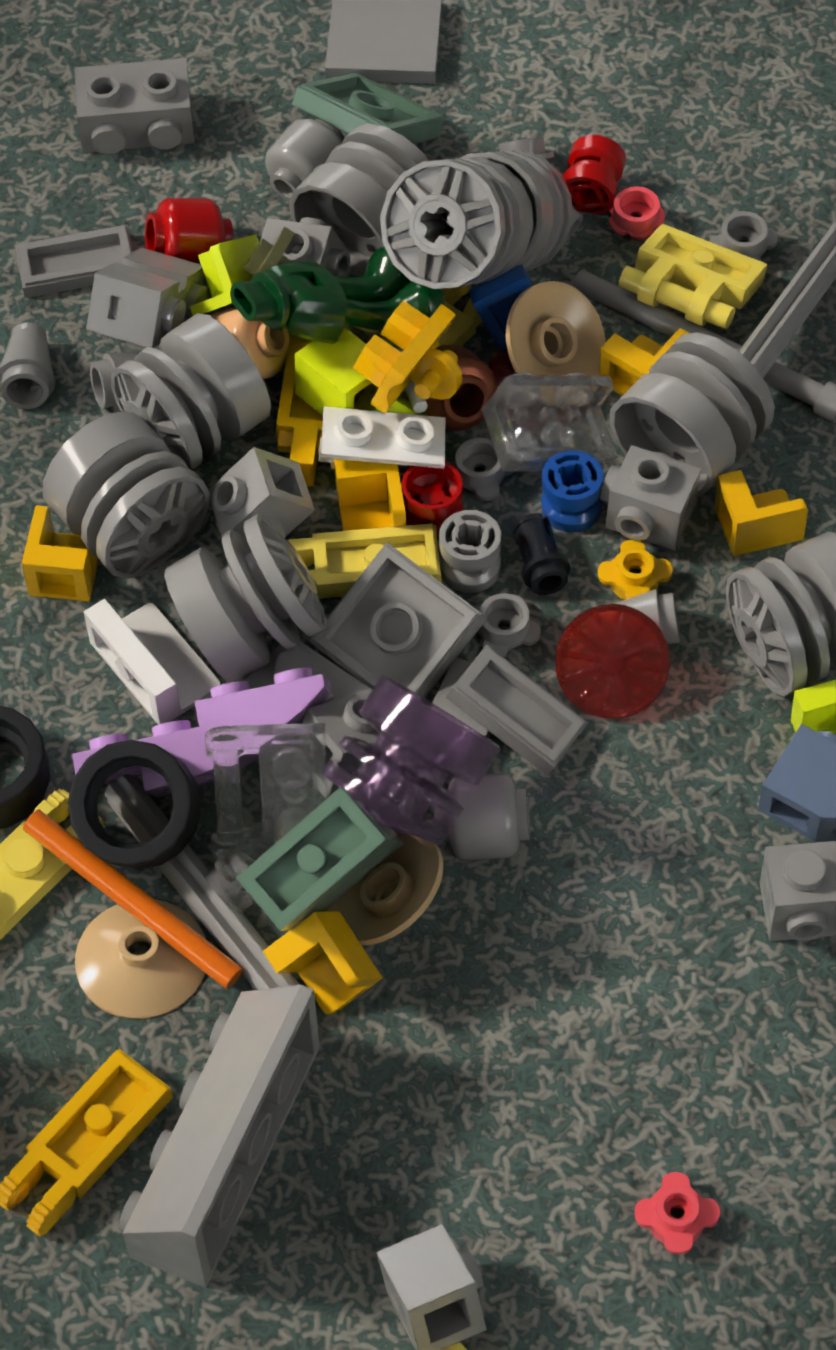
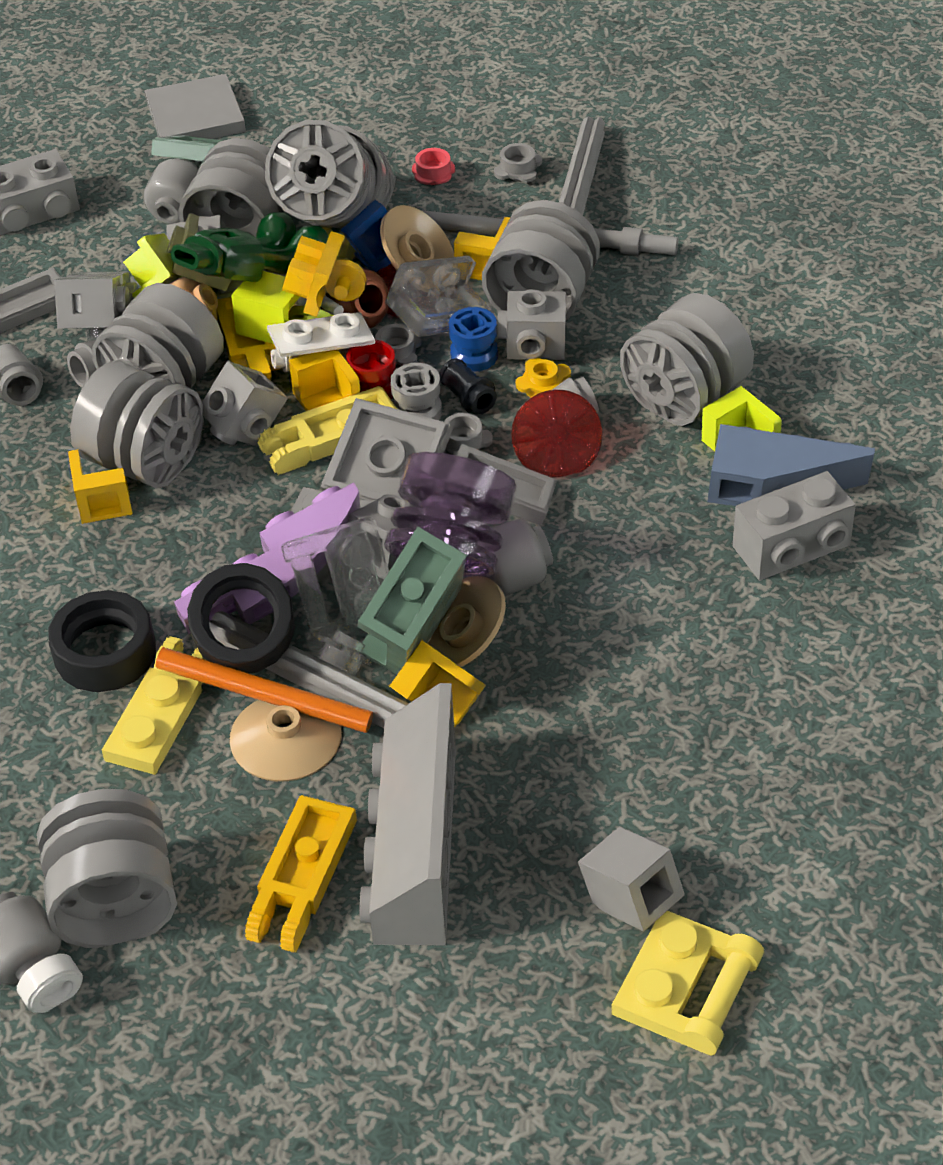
camera: 20 degrees left, 10 degrees down
(150, 659) = (196, 533): white panel -> none
(186, 228) = (102, 252): red head -> none
(237, 603) = (266, 458): light grey wheel -> none
(594, 180) = (395, 141): red wheel -> none
(676, 1233) = (786, 784): coral plate -> none
(693, 276) = (492, 190): light yellow plate -> none
(757, 519) = (610, 323): yellow panel -> none

